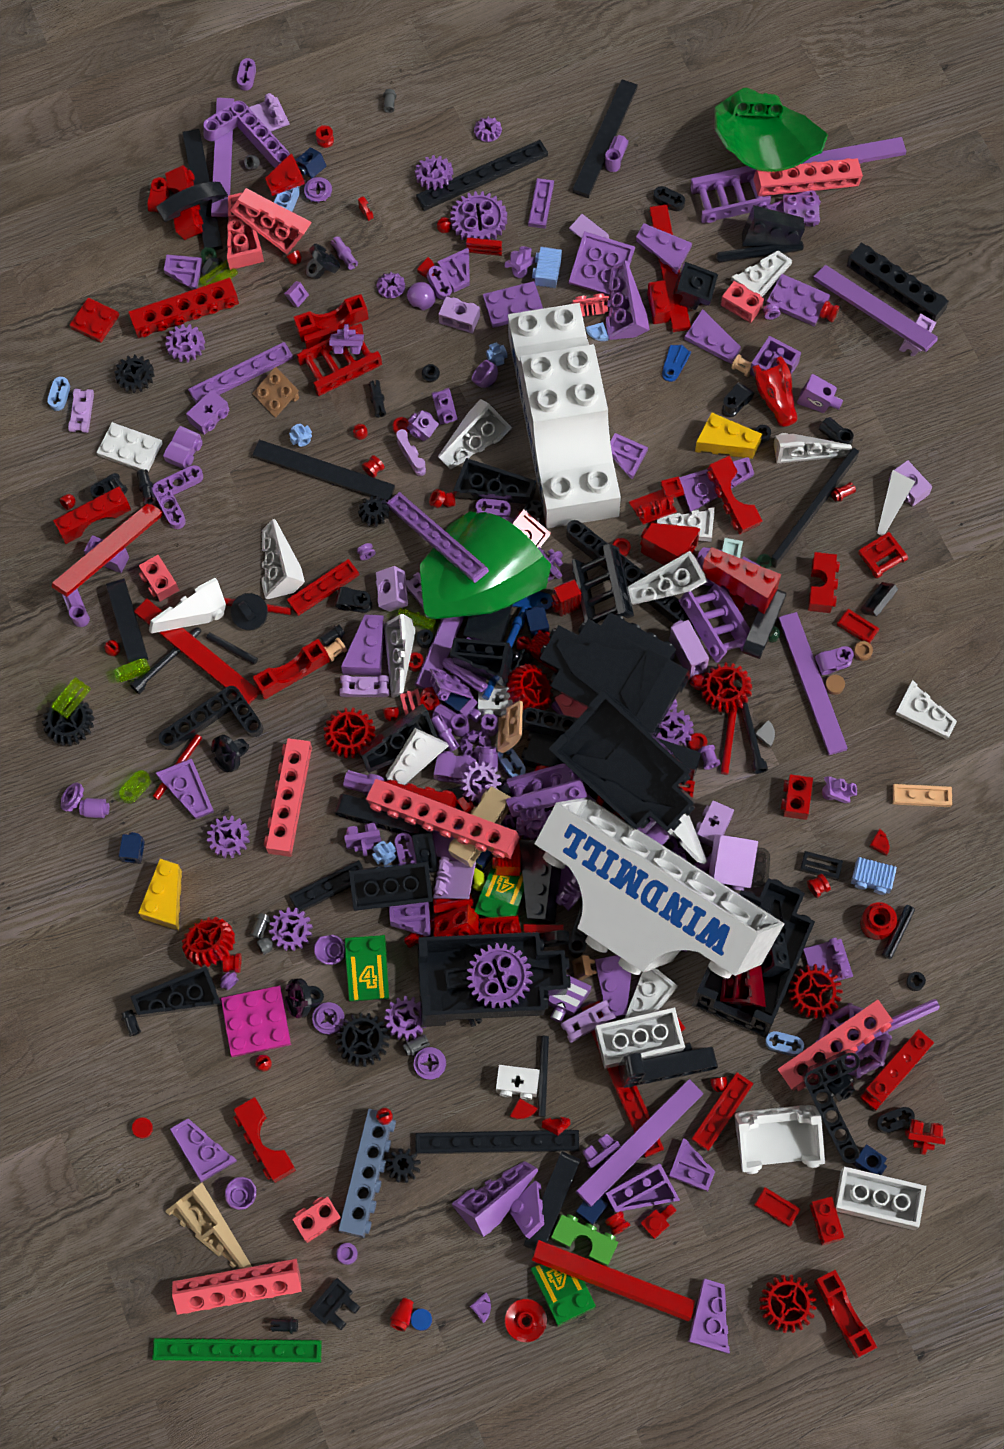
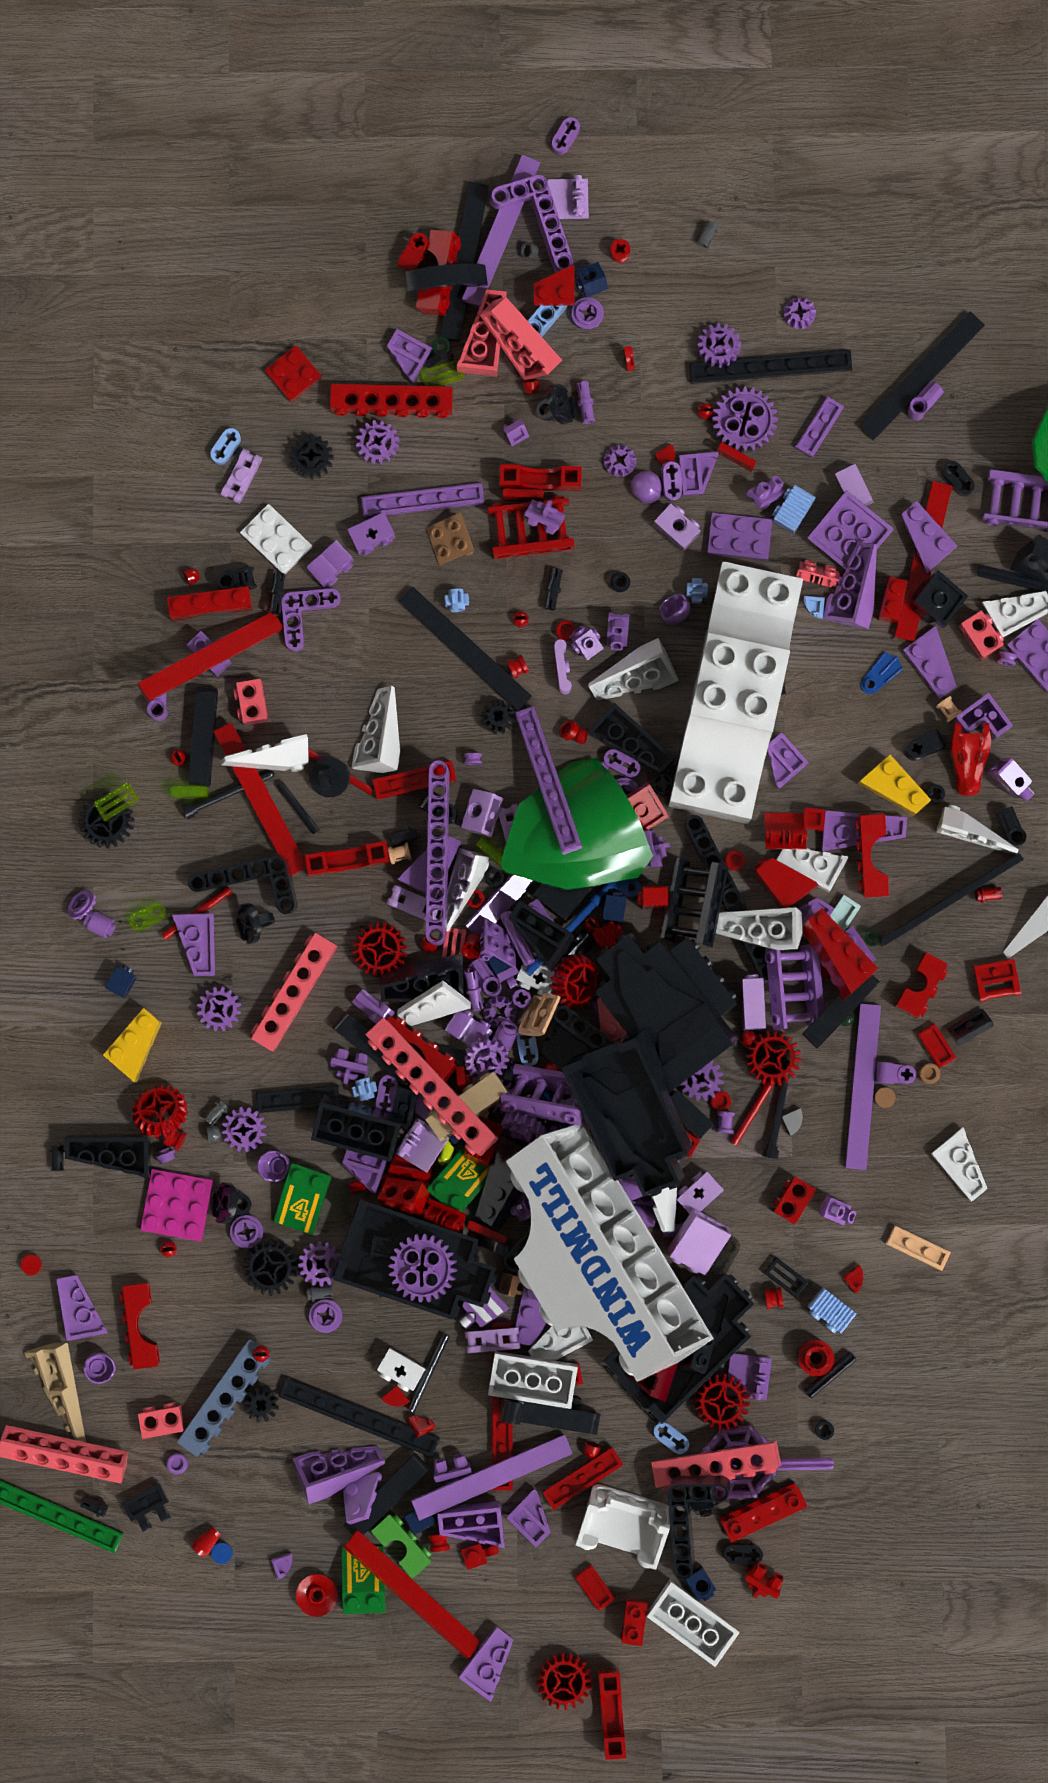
camera: 20 degrees right, 15 degrees up
(368, 636) = (433, 843): none -> medium lavender beam

